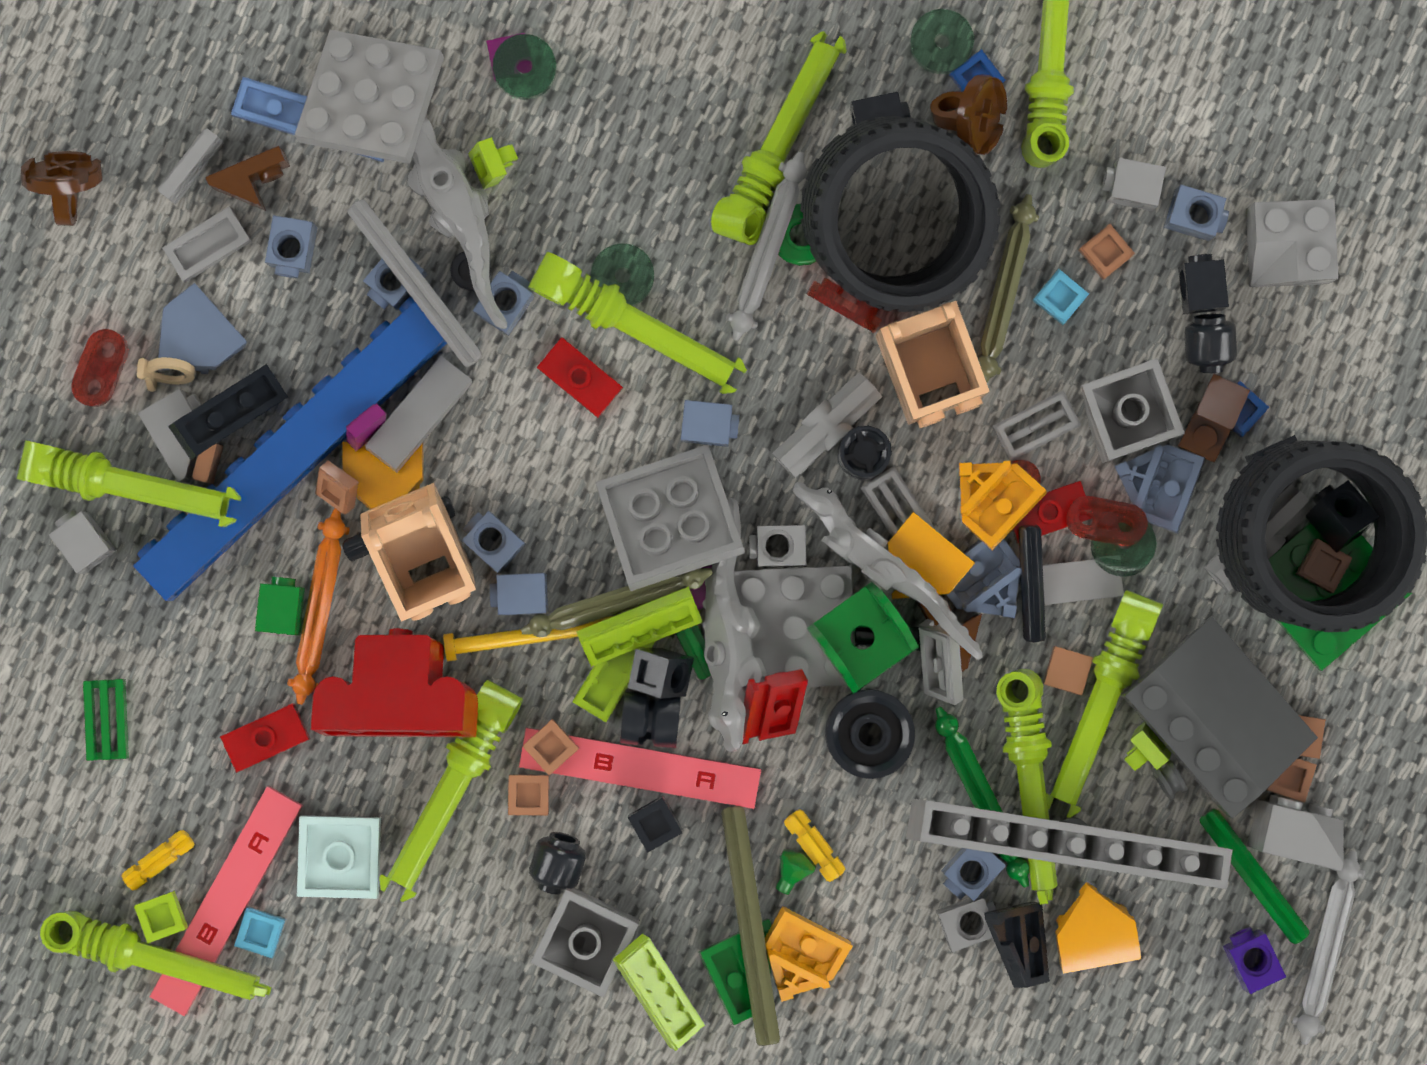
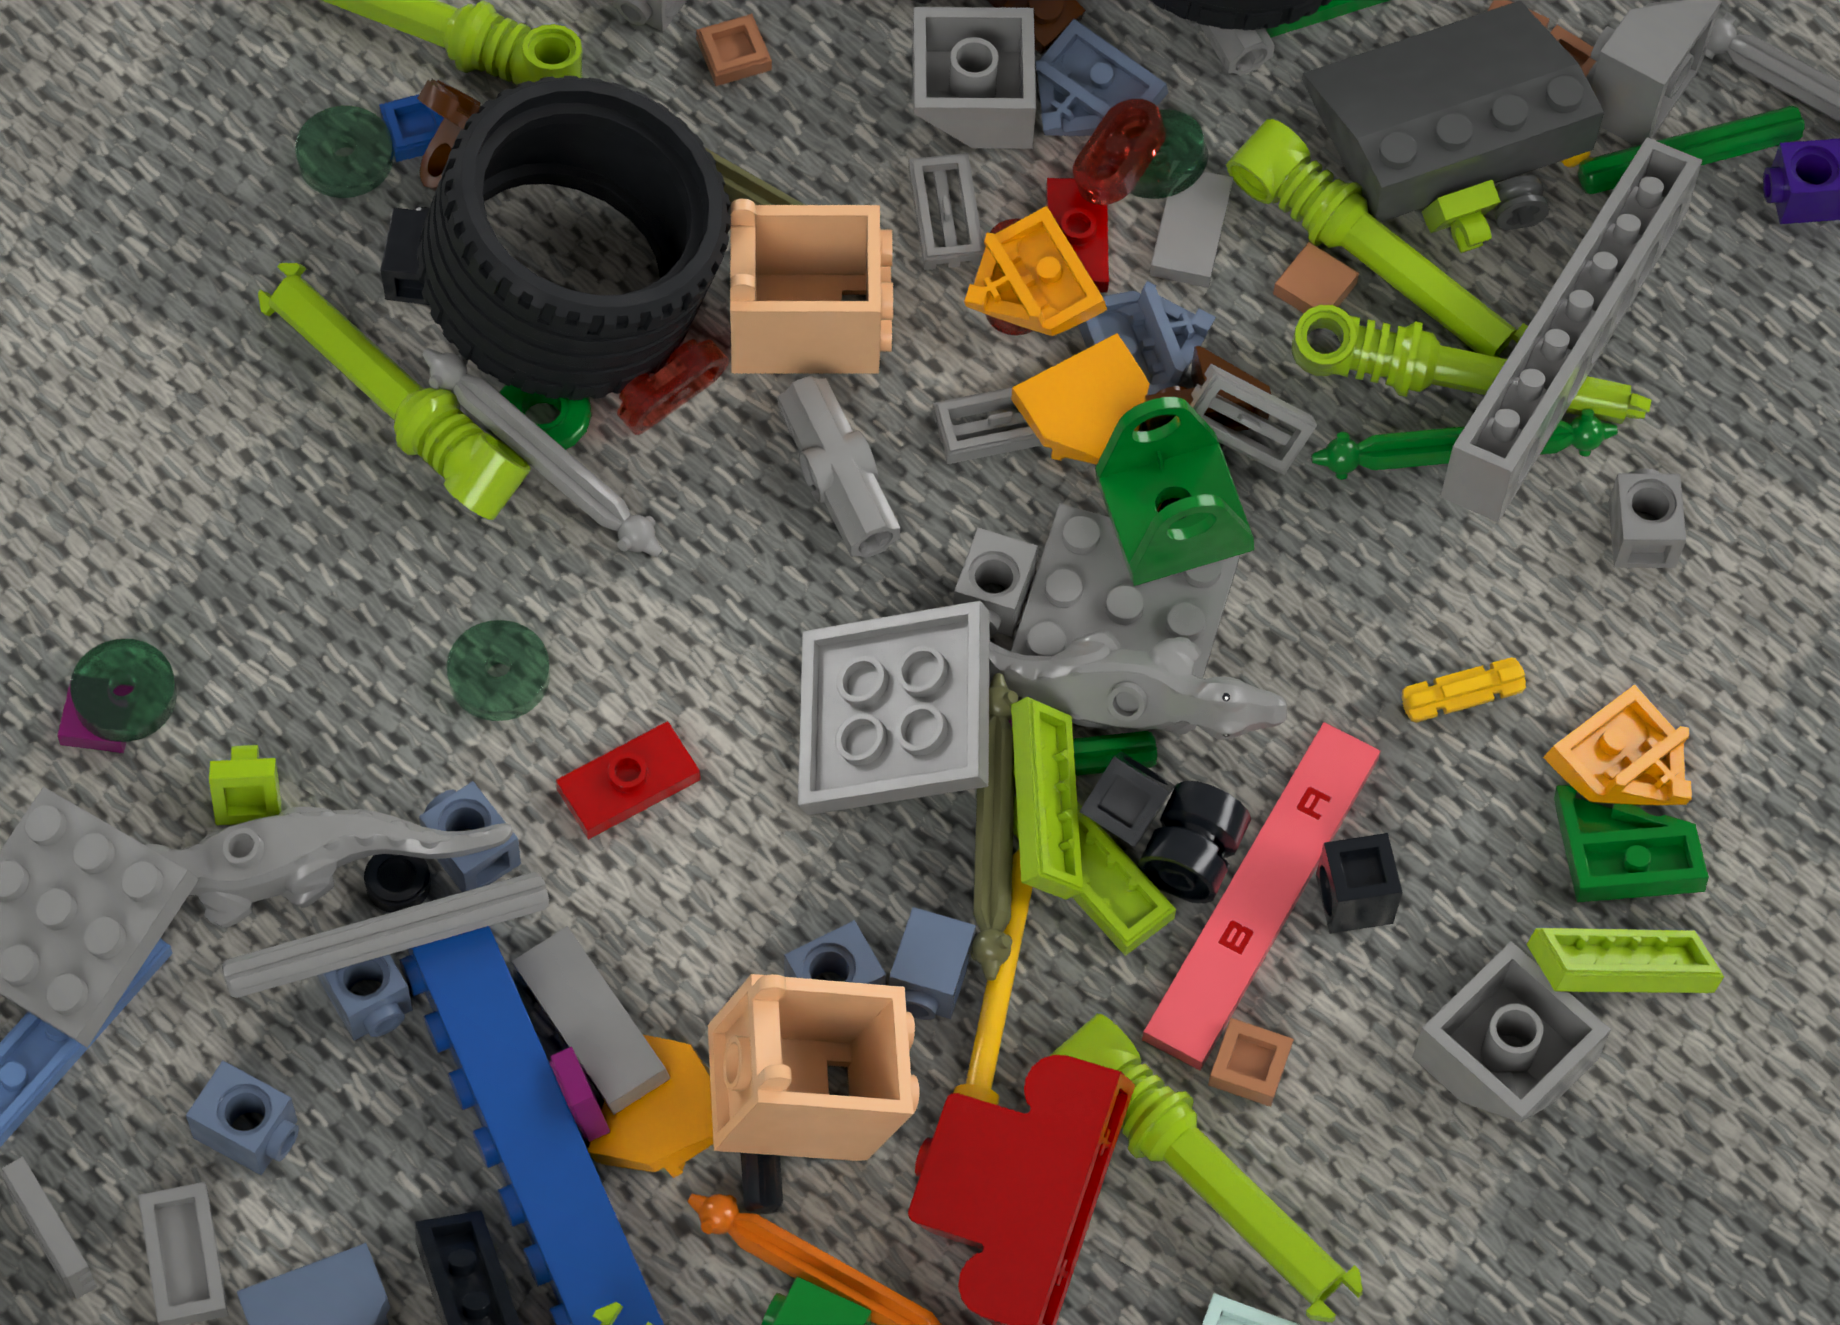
camera: 70 degrees left, 25 degrees down
(239, 178) = (108, 1153): reddish brown slope -> none
(336, 487) = (656, 1177): nougat tile -> none
(550, 747) = (1187, 998): nougat tile -> none
(557, 862) = (1373, 1051): black head -> none
(607, 308) = (479, 728): lime piece -> none
(708, 423) = (771, 620): sand blue brick -> none
(750, 926) = (1561, 803): olive axle -> none
(774, 705) = (1229, 643): red plate -> none
(793, 870) = (1491, 726): green rock -> none
(864, 452) = (901, 422): black wheel -> none
(878, 564) = (1065, 454): light grey animal -> none
(894, 743) = (1316, 588): black wheel -> none
(990, 868) = (1572, 465): sand blue brick -> none
(1021, 942) = (1702, 455): black wing -> none
(1032, 583) = (1174, 280): black axle -> none
(1060, 297) = (774, 124): medium azure tile -> none
(1095, 933) = (1713, 366): light orange slope -> none

